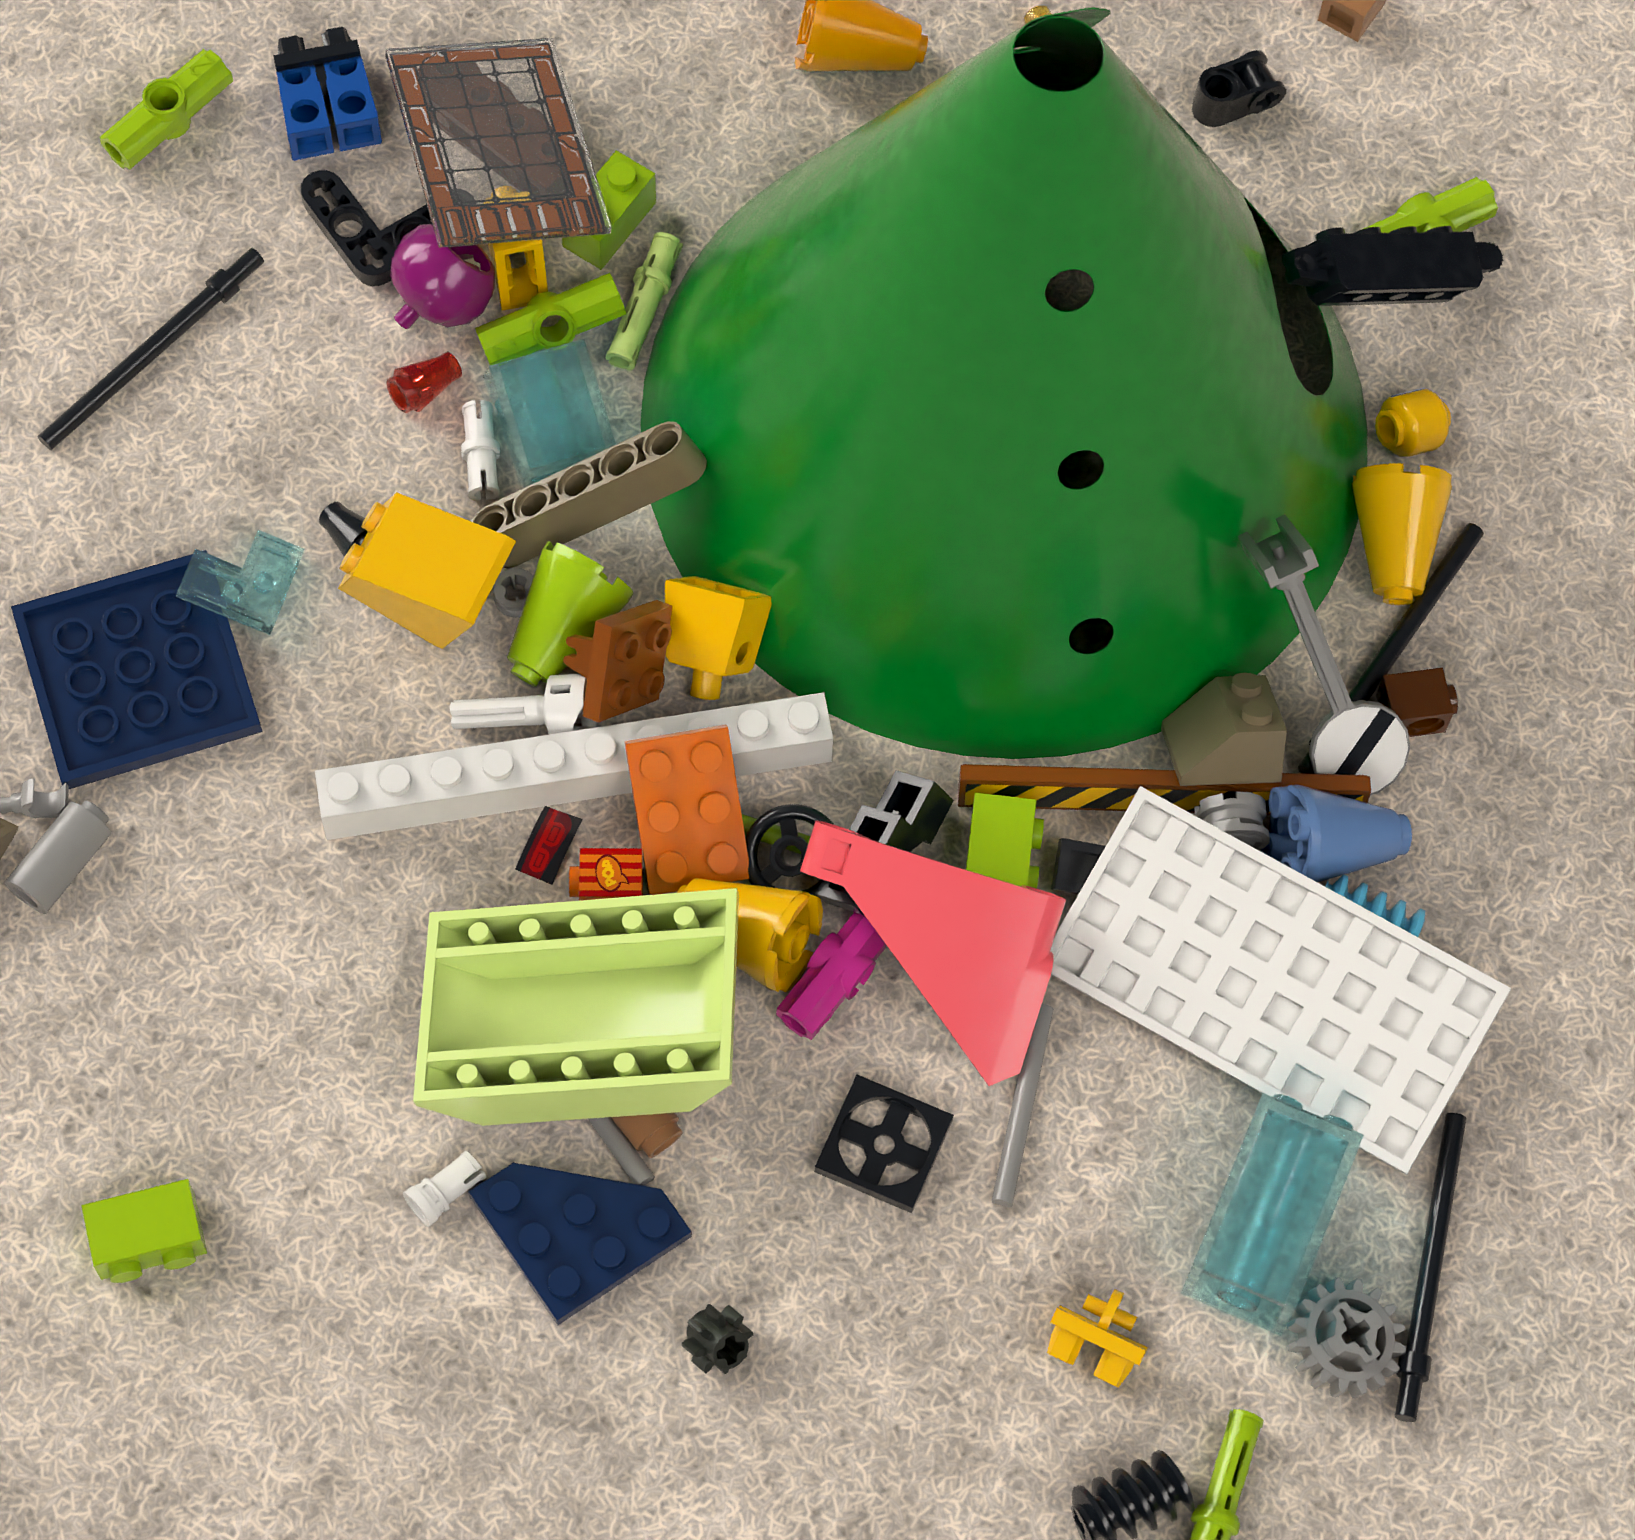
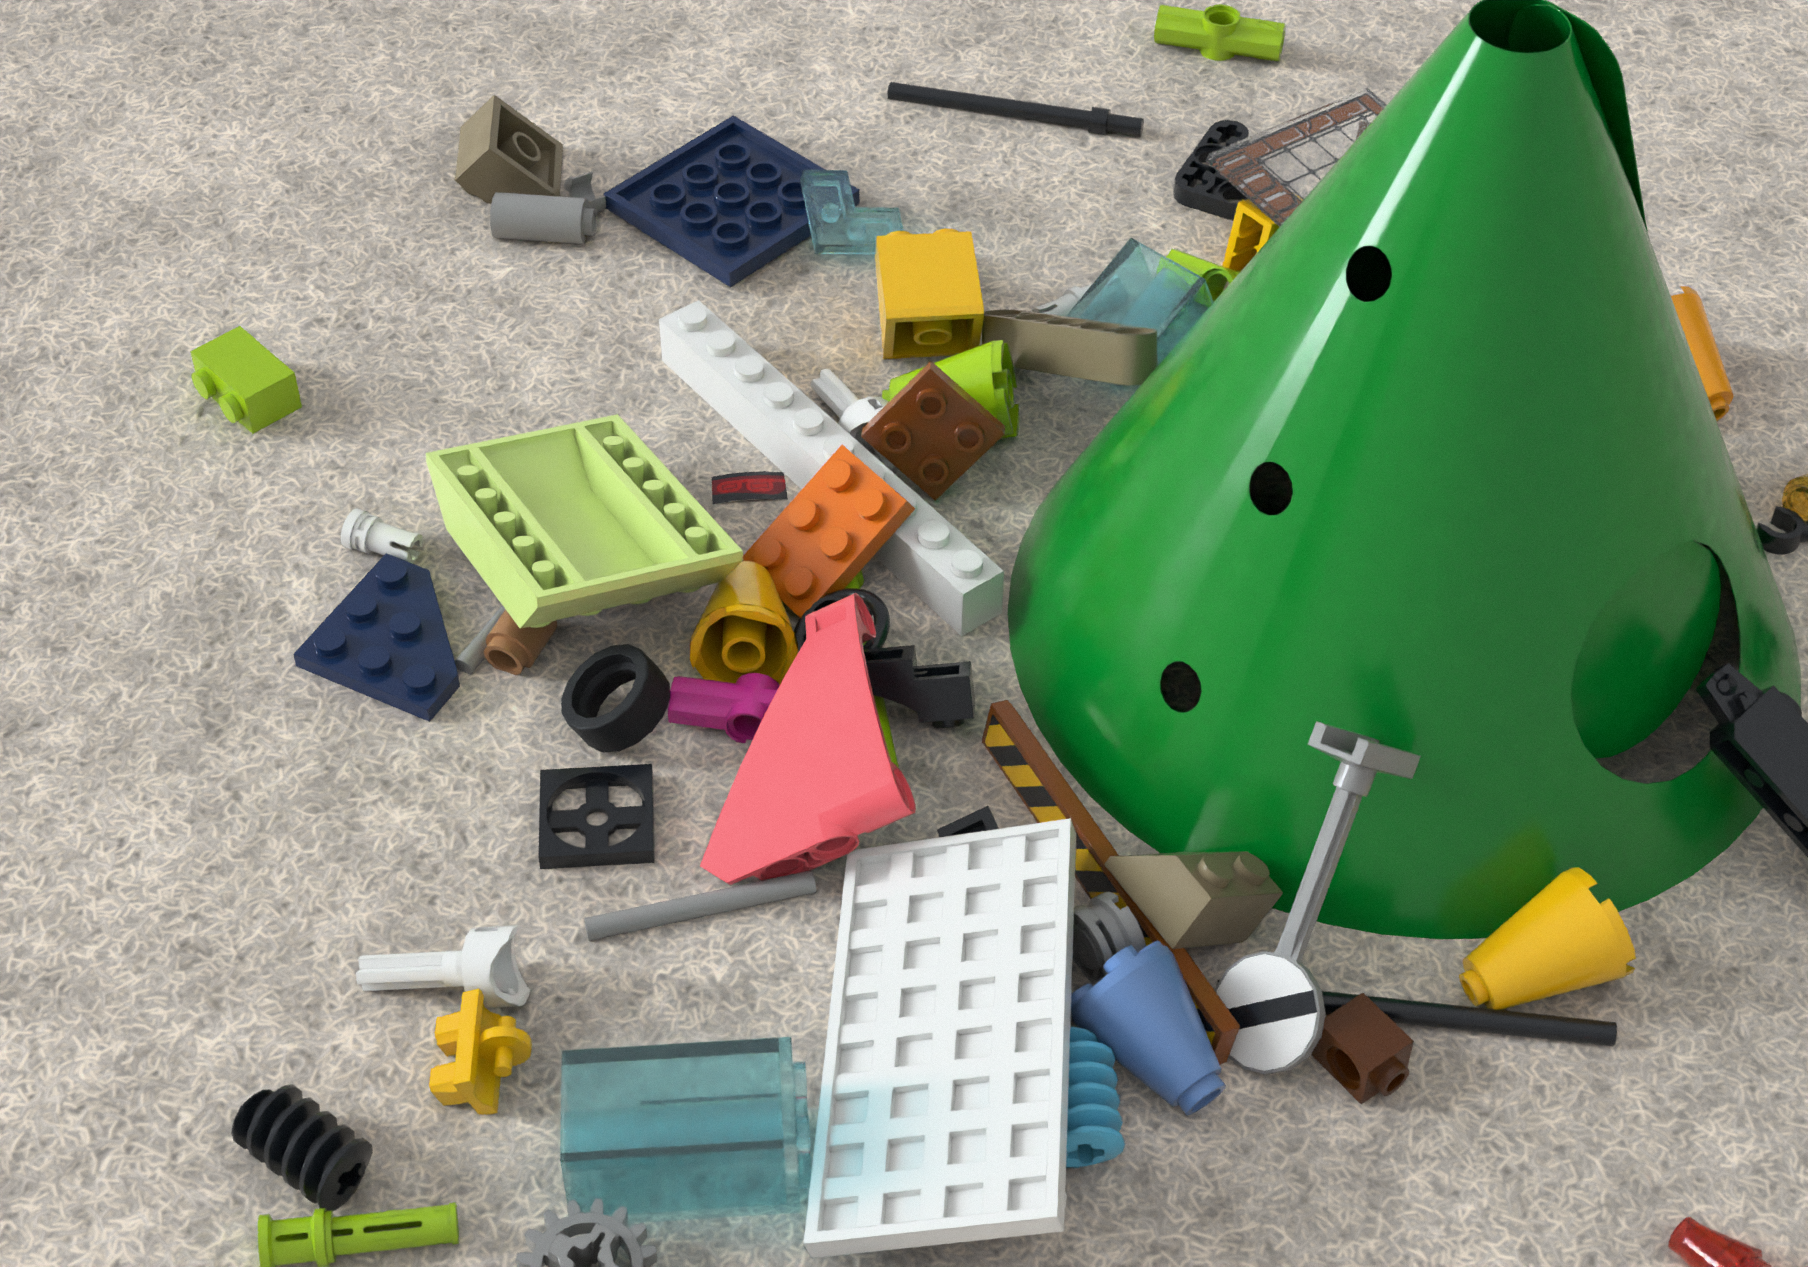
camera: 65 degrees right, 20 degrees down
(323, 77) = (1301, 90): blue hips -> none
(421, 382) = (1100, 243): clear red cone -> none
(439, 281) = (1197, 208): magenta piece -> none
(607, 873) = (736, 513): brick -> none
(714, 630) = (1010, 484): yellow torso -> none
(717, 1339) = (325, 761): pearl dark grey gear -> none
(807, 1039) = (631, 718): none -> black tyre
(1002, 838) = (953, 773): lime brick -> none
(1021, 1296) = (484, 964): none -> white piece
(1413, 422) = (1681, 921): yellow head -> none

